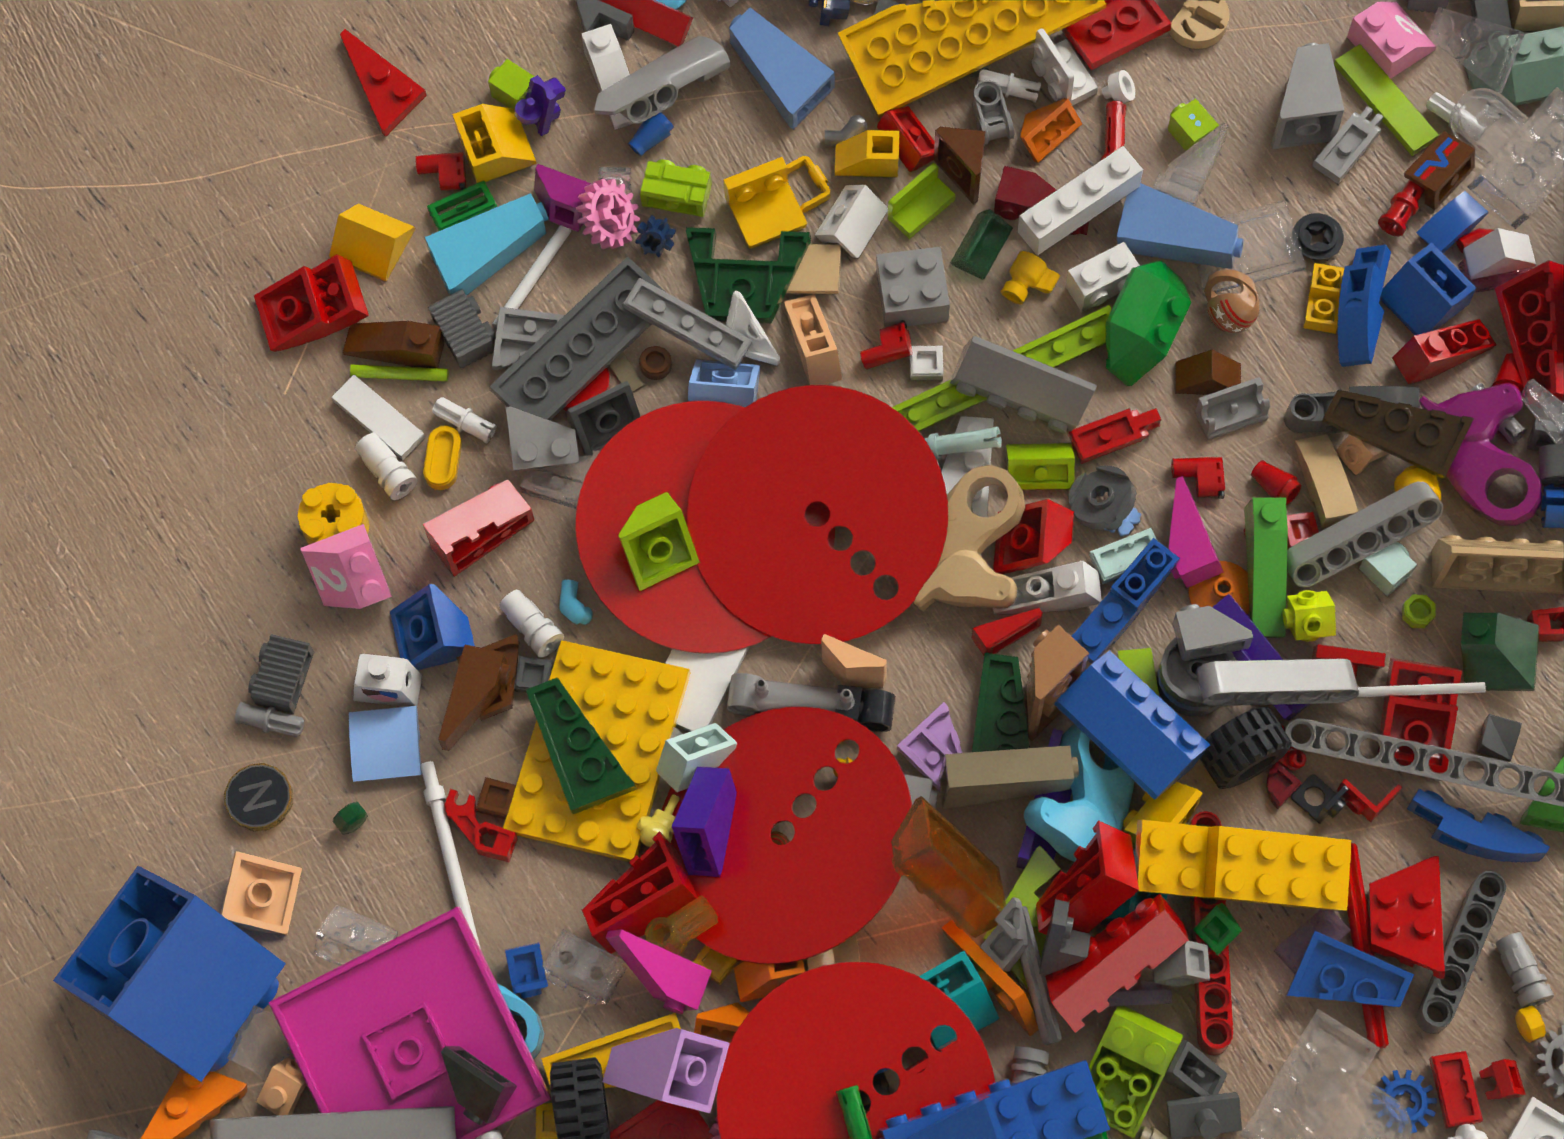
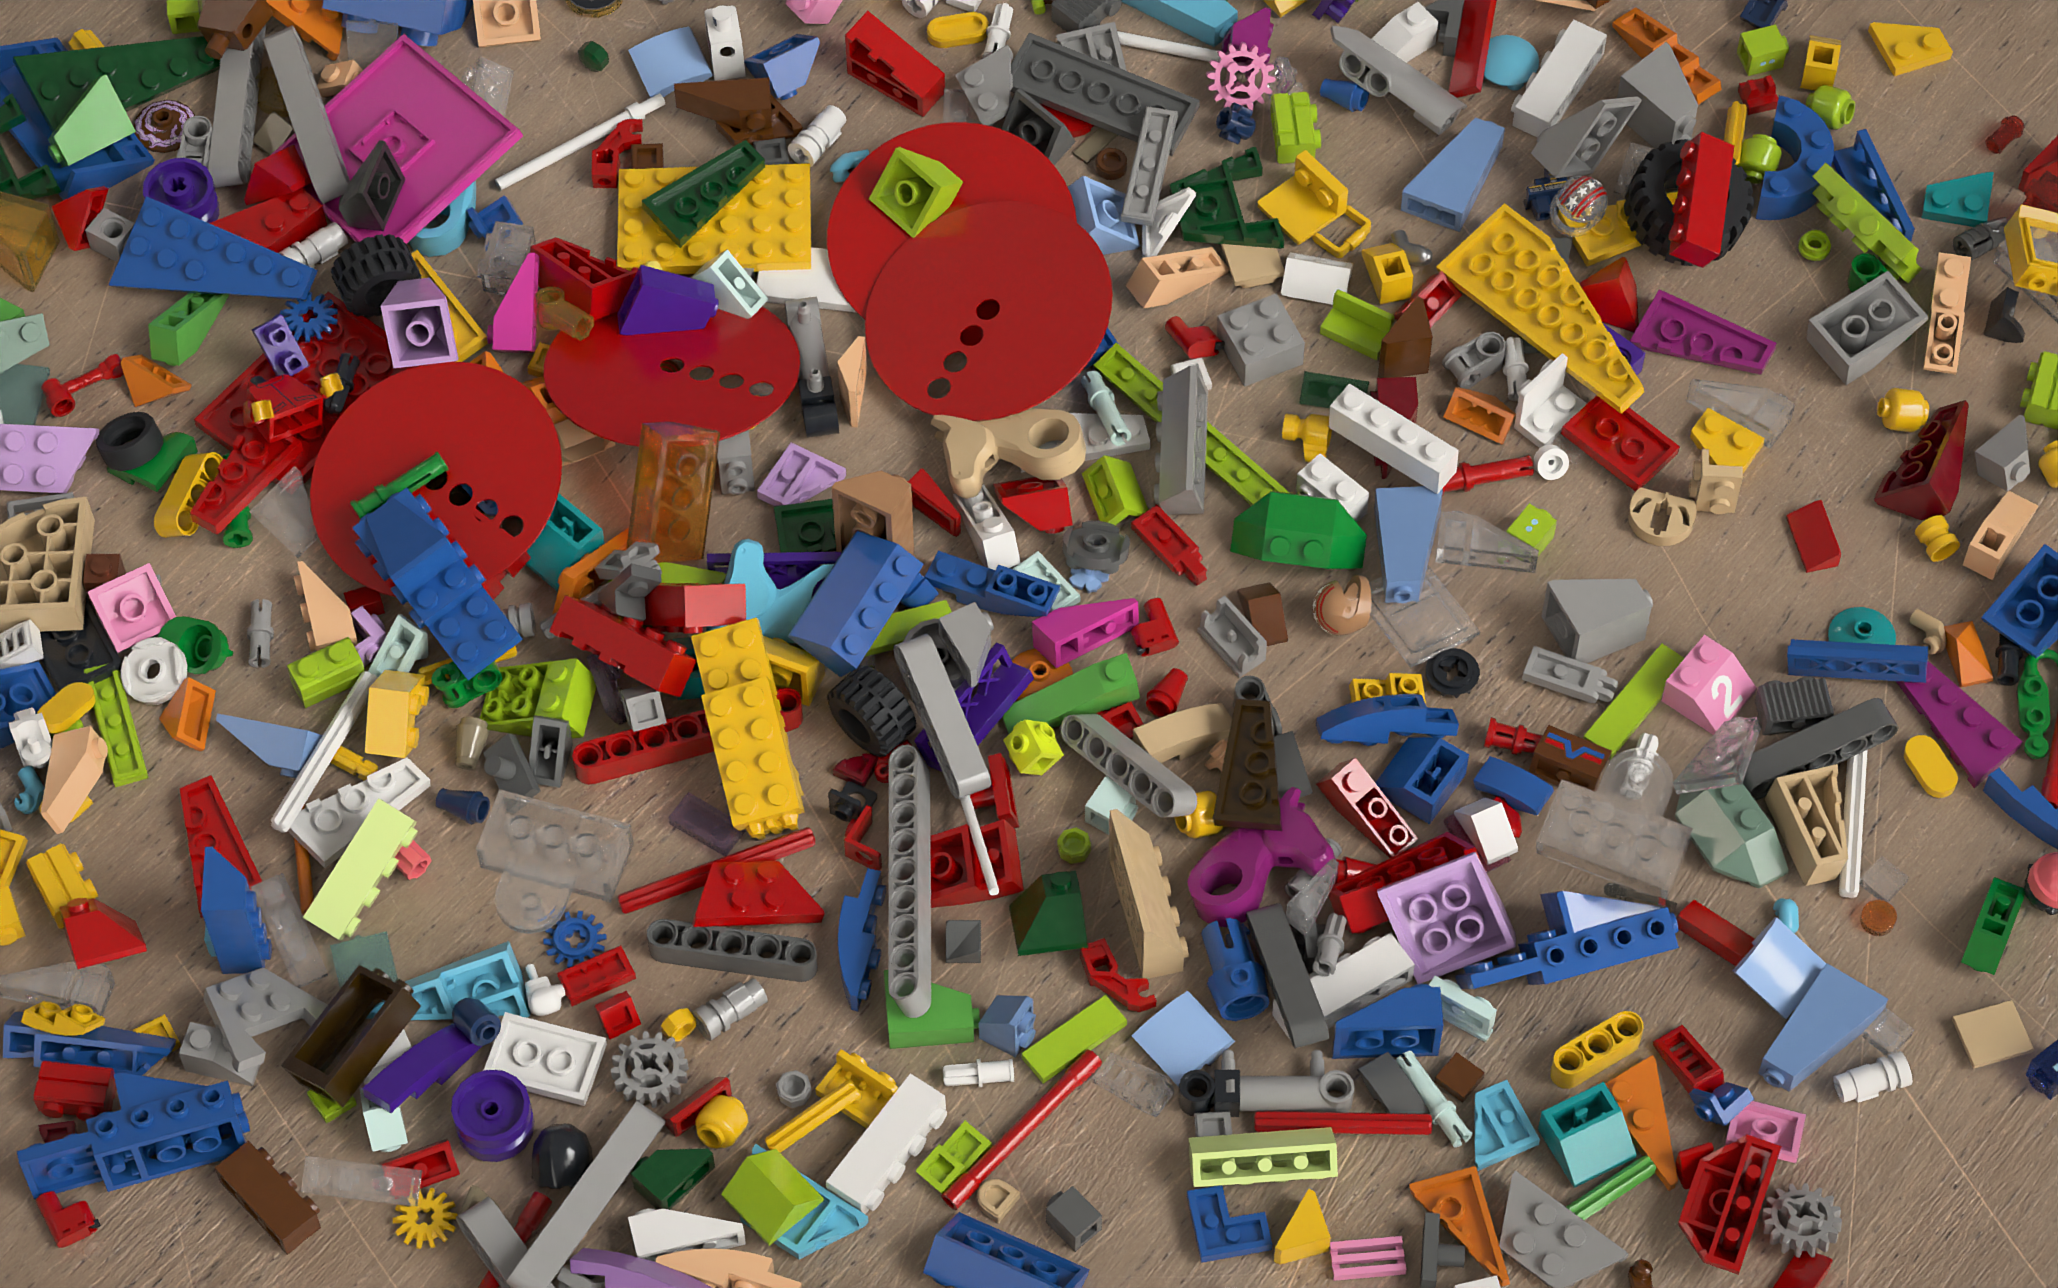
camera: 70 degrees right, 10 degrees down
(1005, 775) = (775, 512): dark tan slope -> none
(1218, 928) = (686, 727): green slope -> none
(1347, 974) = (677, 850): blue wing -> none

